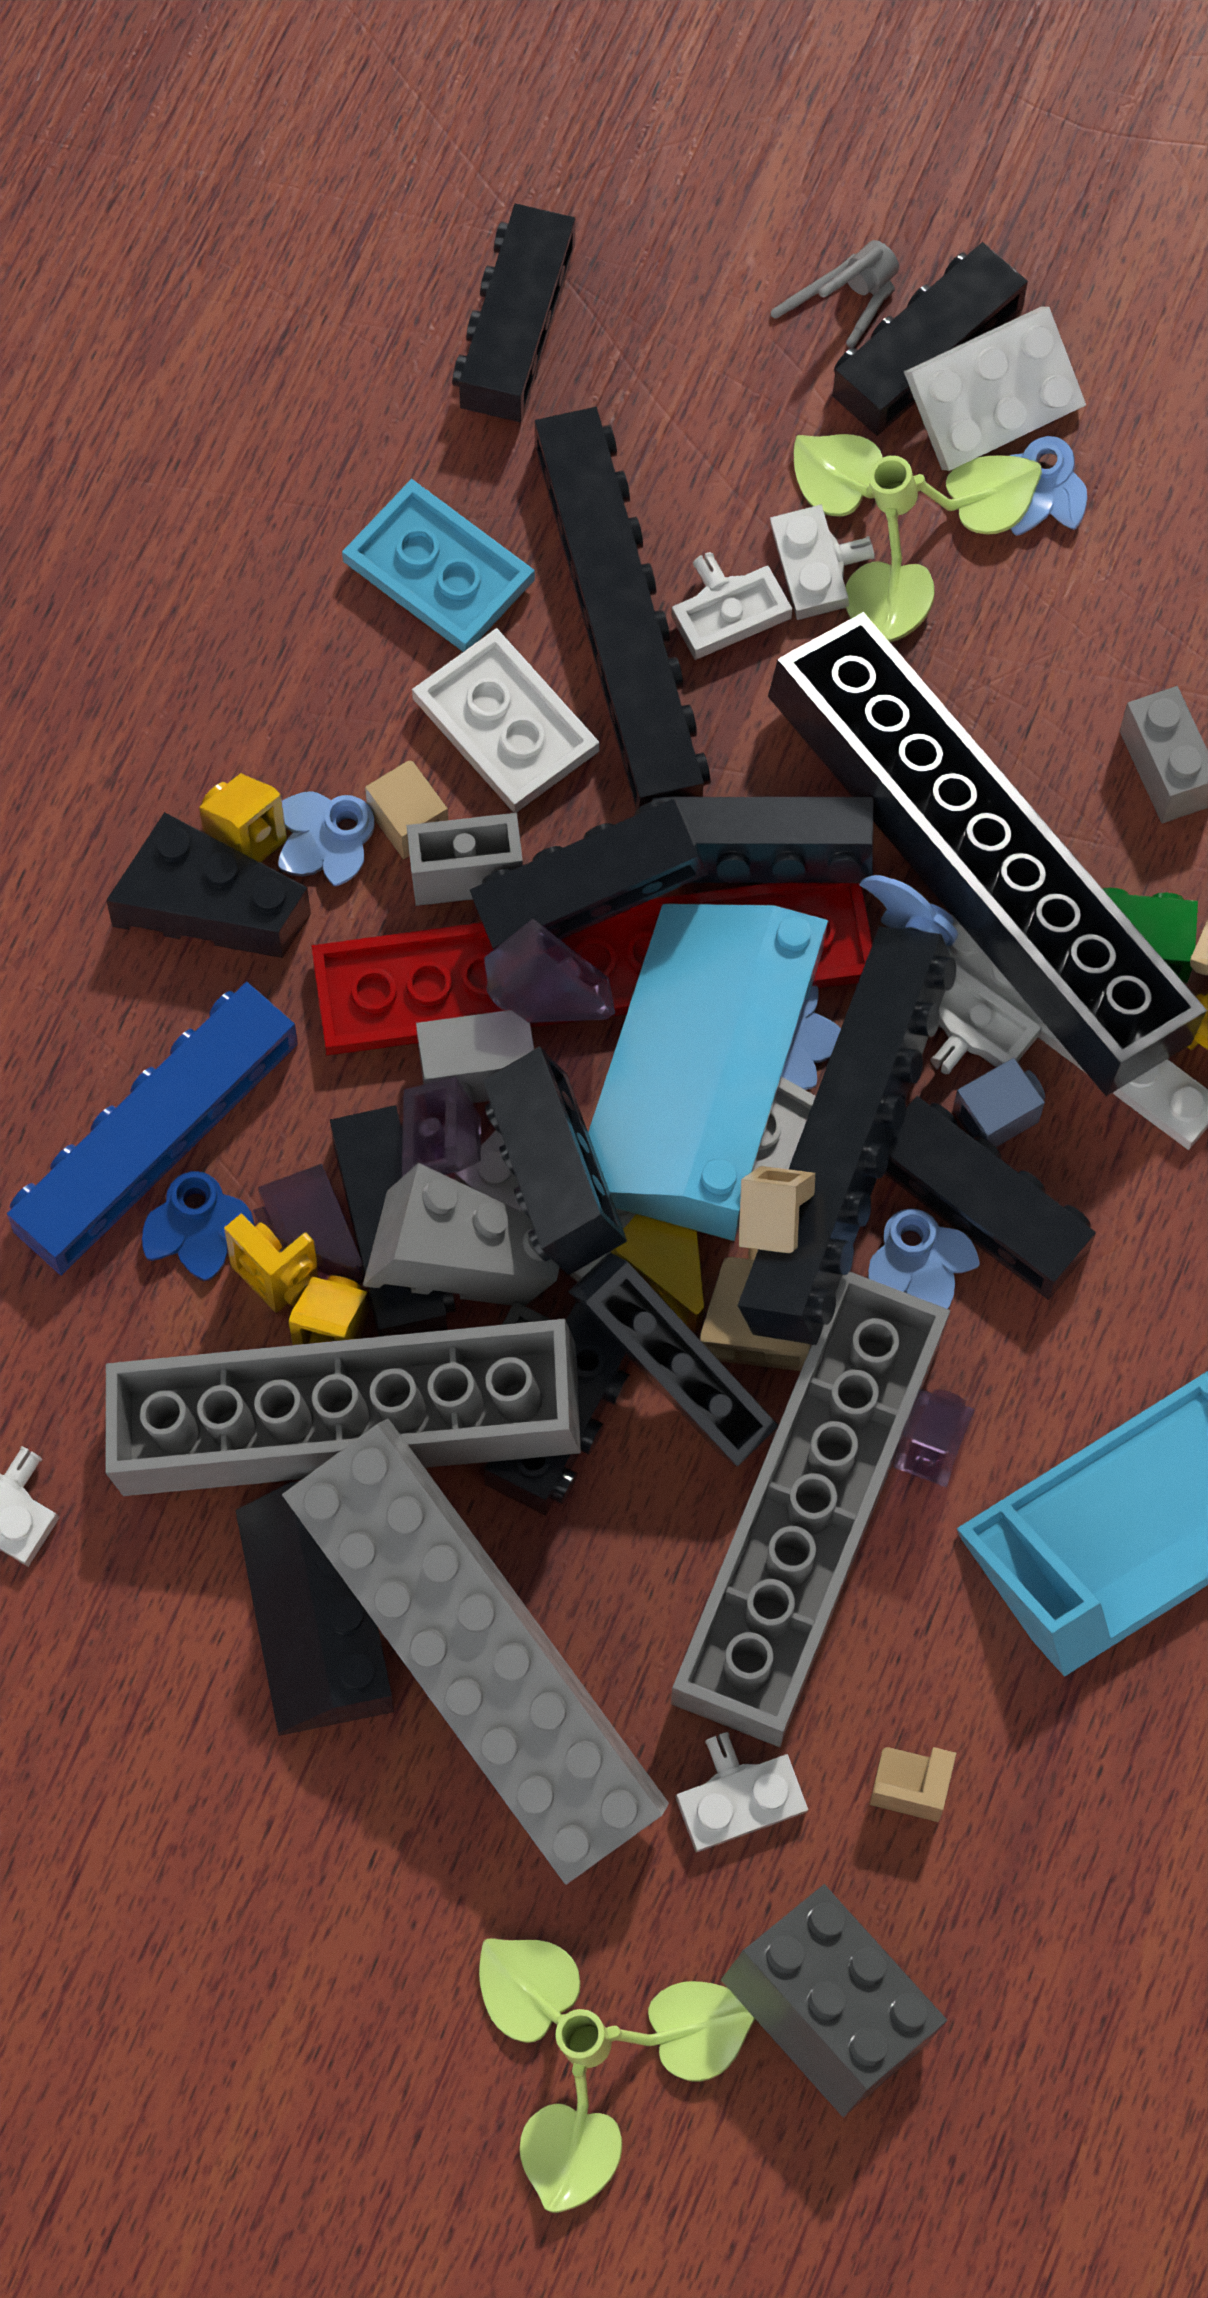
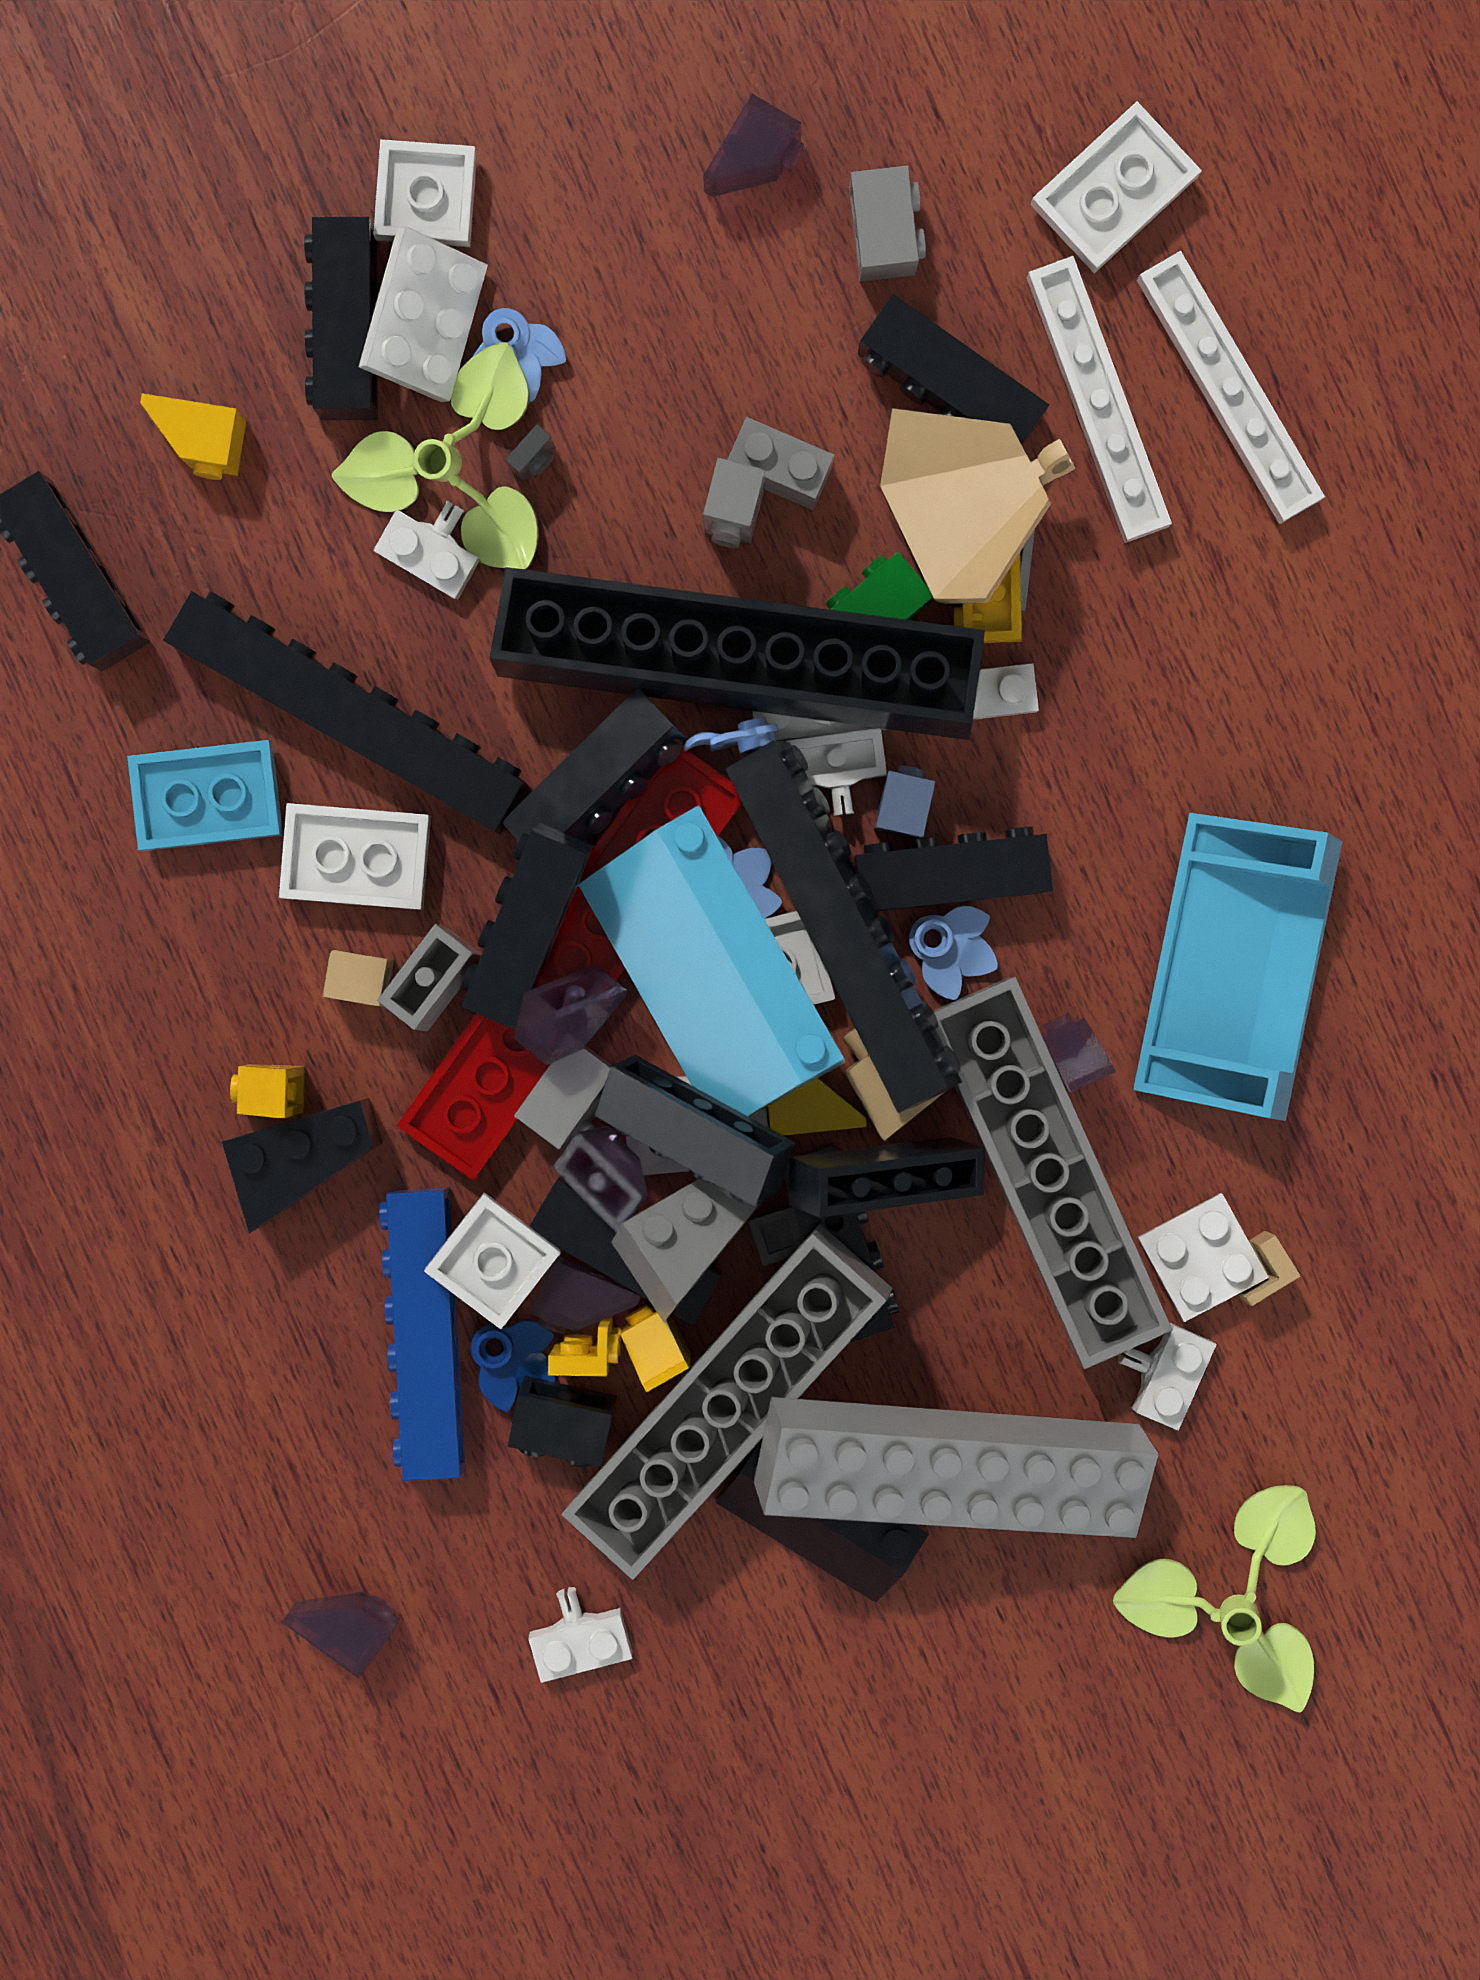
camera: 40 degrees left, 20 degrees up
(182, 1302) = (562, 1422): none -> black brick
(275, 1109) = (492, 1260): none -> white plate
(317, 839) = (322, 1049): light blue plate -> none
(728, 313) = (200, 433): none -> yellow slope
(729, 608) = (411, 639): white plate -> none
(771, 1207) = (856, 1031): tan panel -> none
(833, 2000) = (1346, 1445): dark grey brick -> none
(865, 273) = (255, 312): light grey plant -> none
(871, 1723) = (1202, 1257): none -> white plate
(973, 564) = (532, 454): none -> dark grey plate
(1095, 310) = (425, 190): none -> white plate
(1099, 741) = (733, 503): none -> light grey brick

